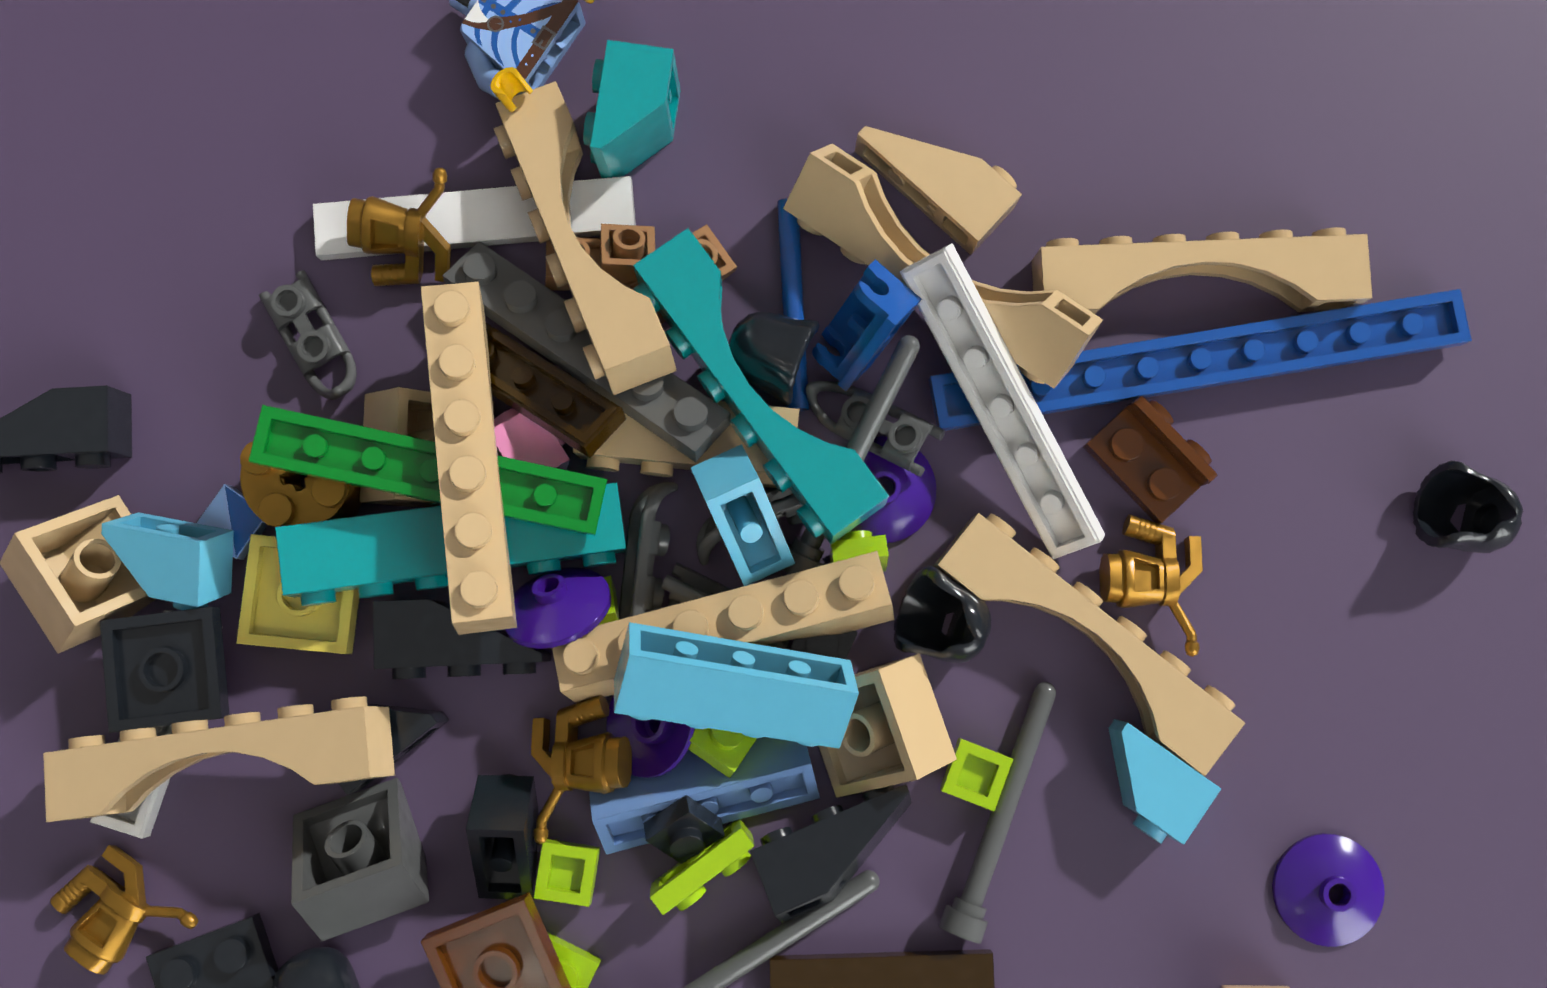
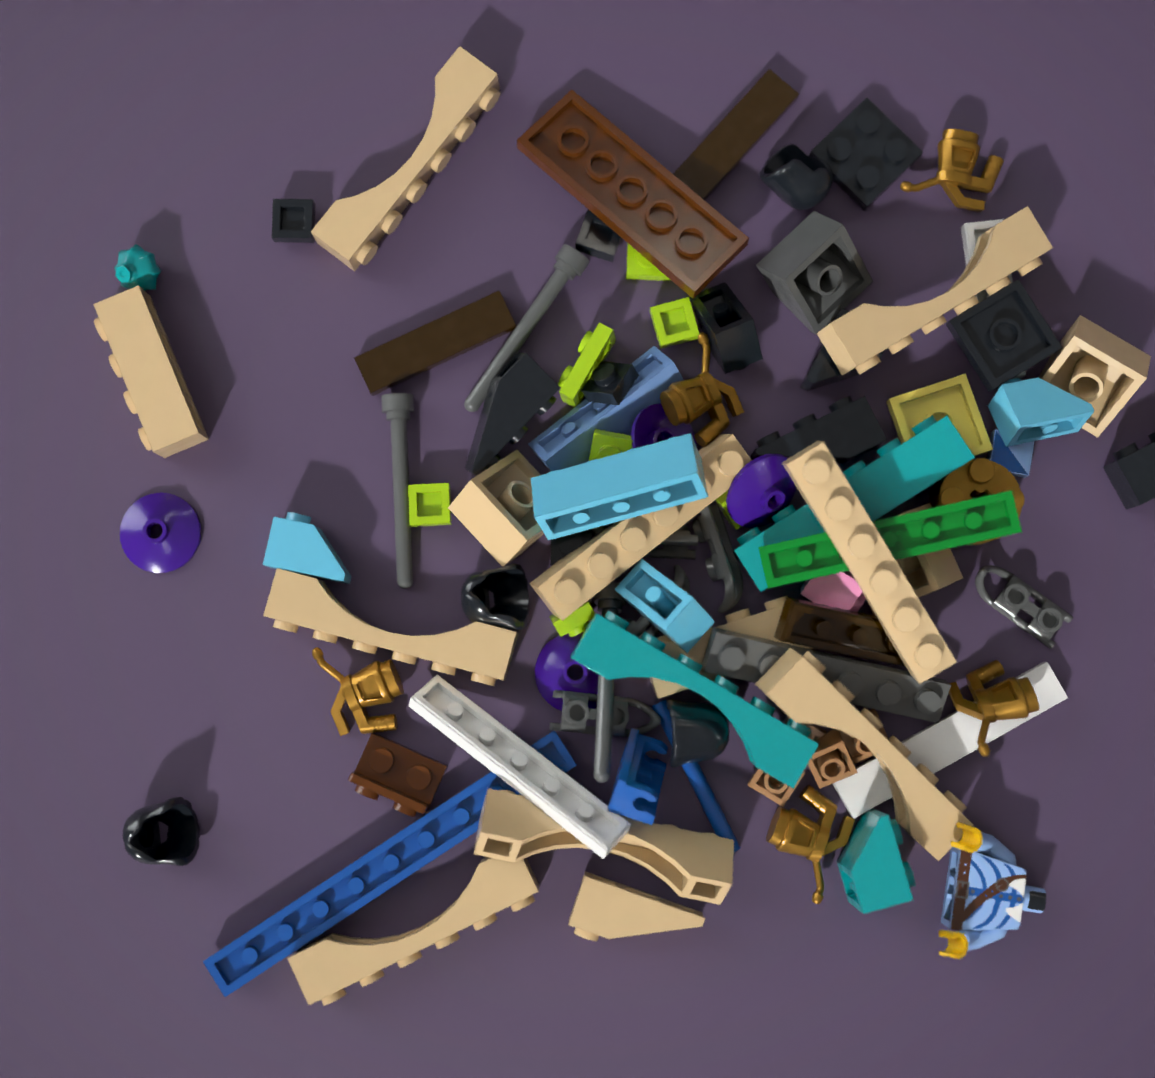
camera: 160 degrees right, 0 degrees up
(702, 184) = (801, 836): none -> pearl gold piece

